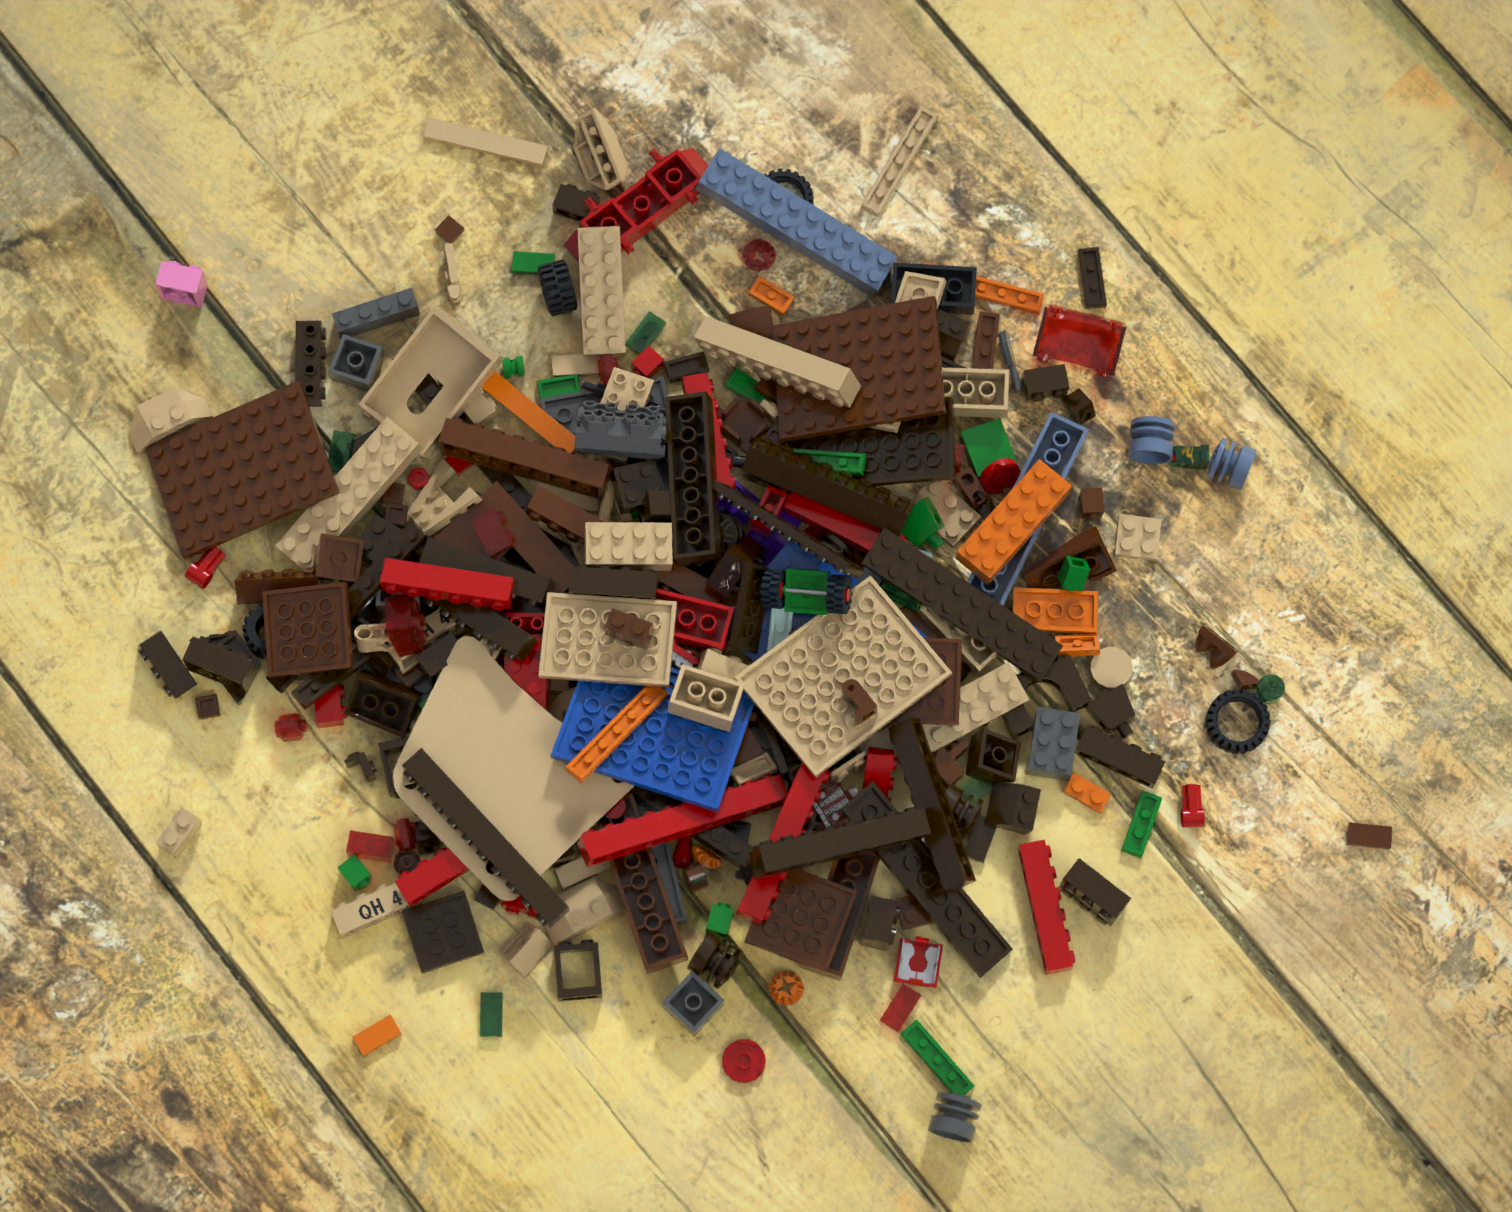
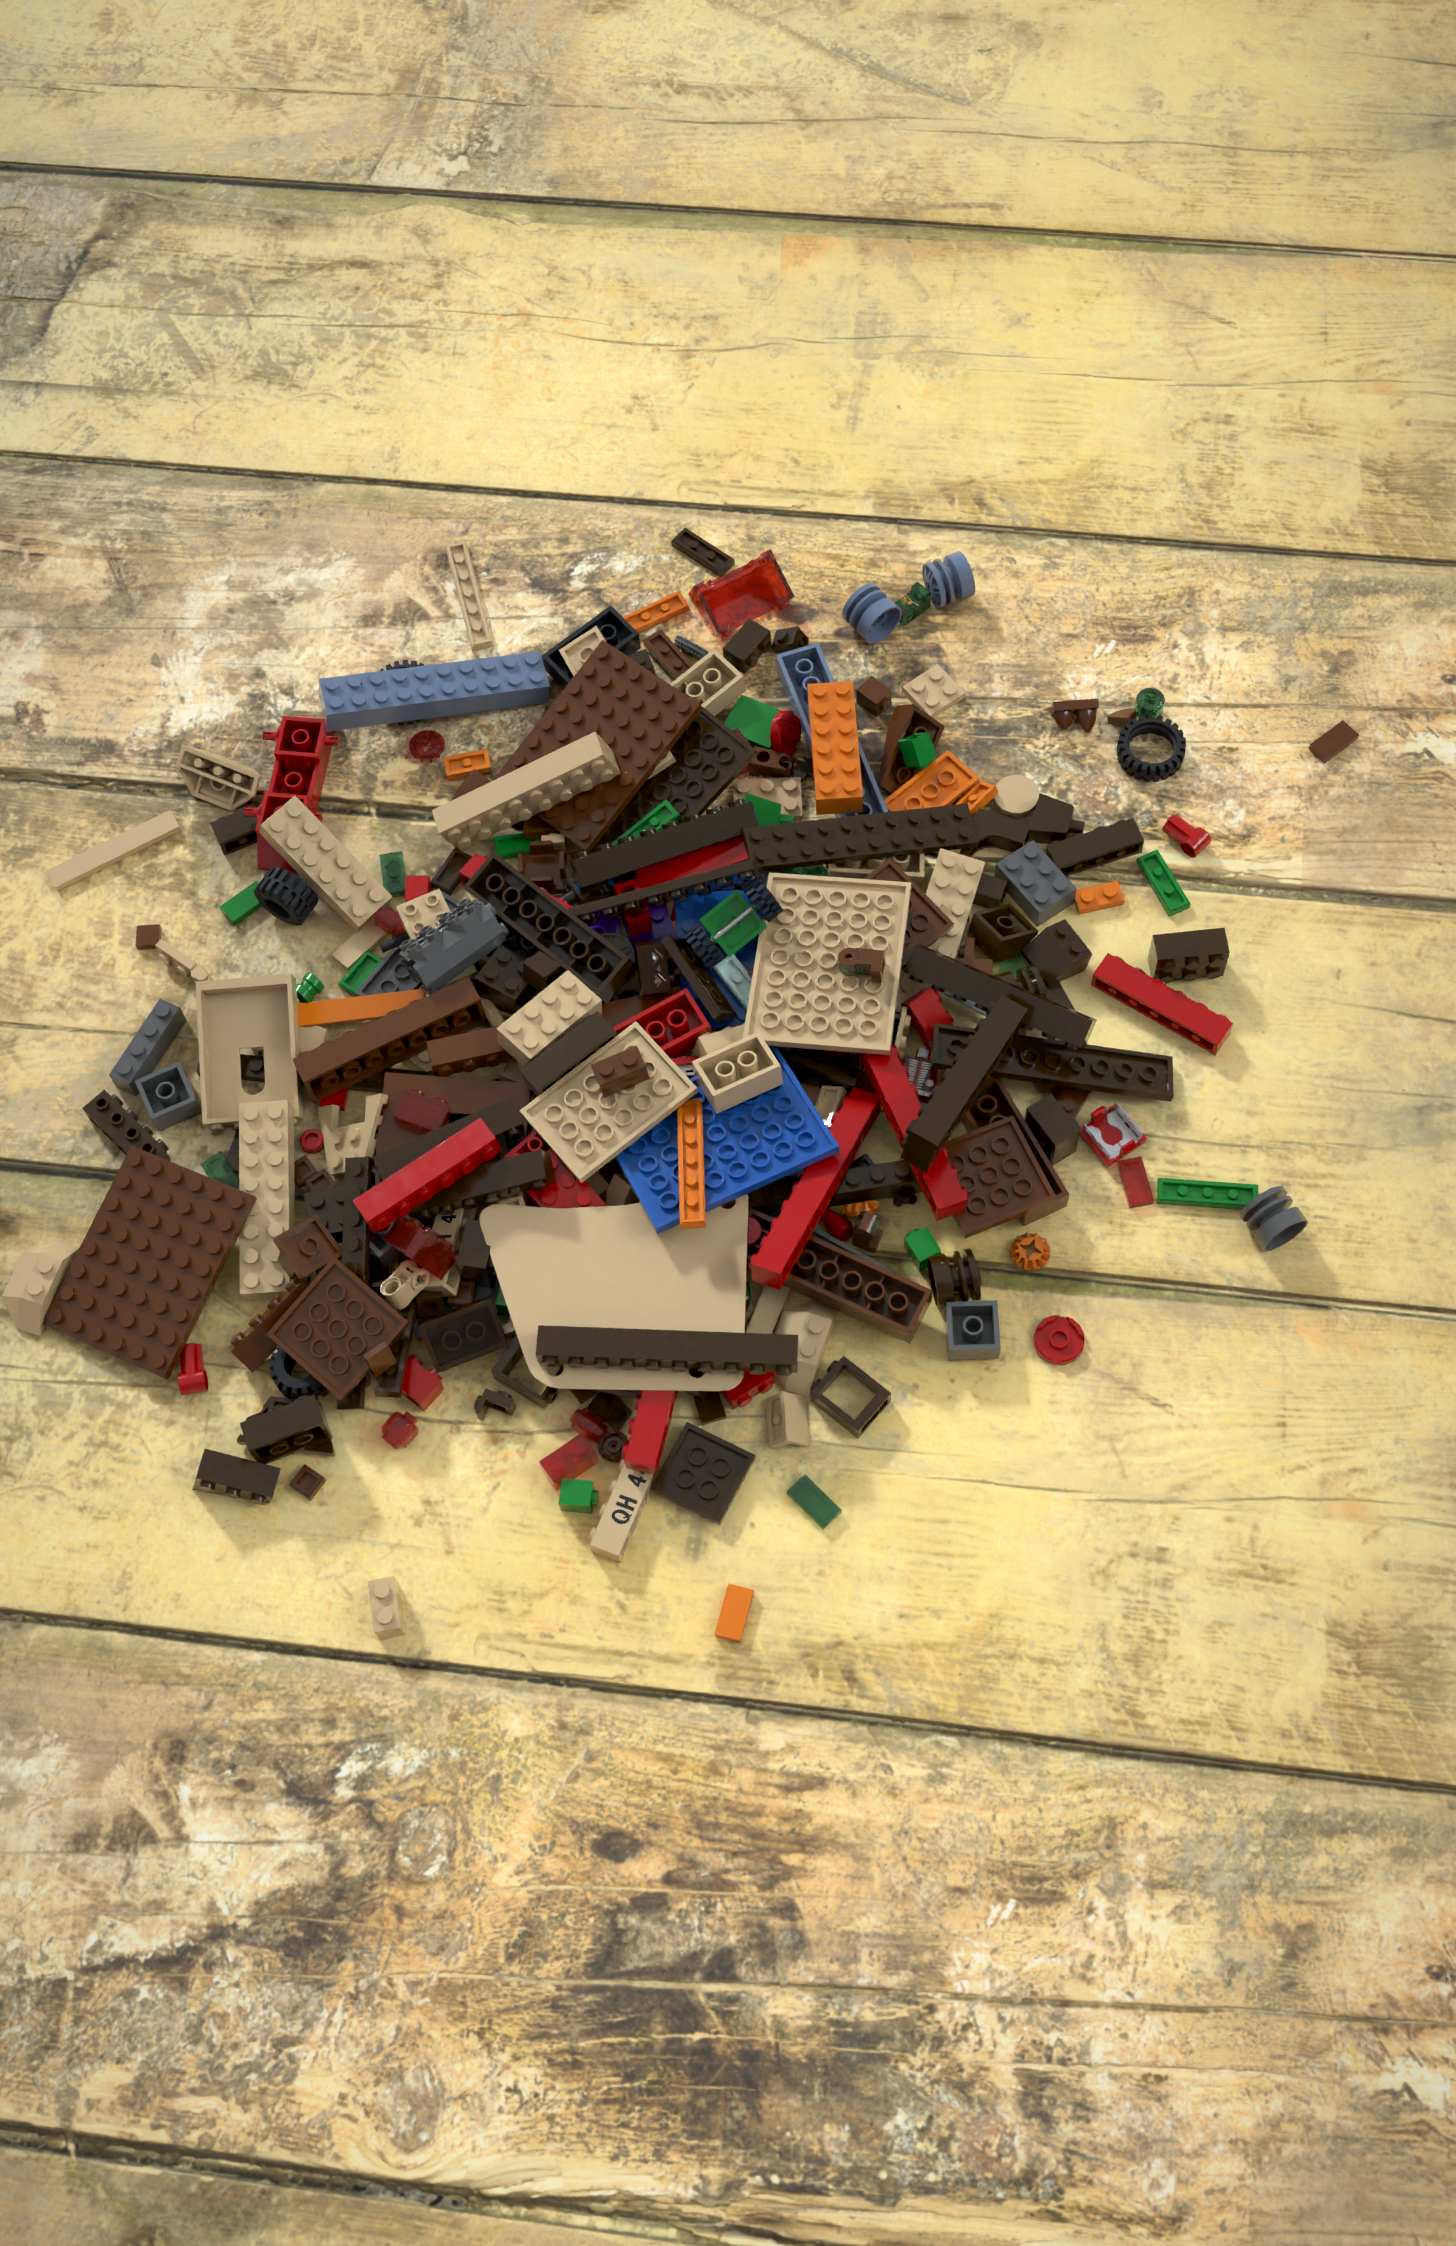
camera: 35 degrees left, 10 degrees down
(312, 674) = (380, 1359): none -> reddish brown tile

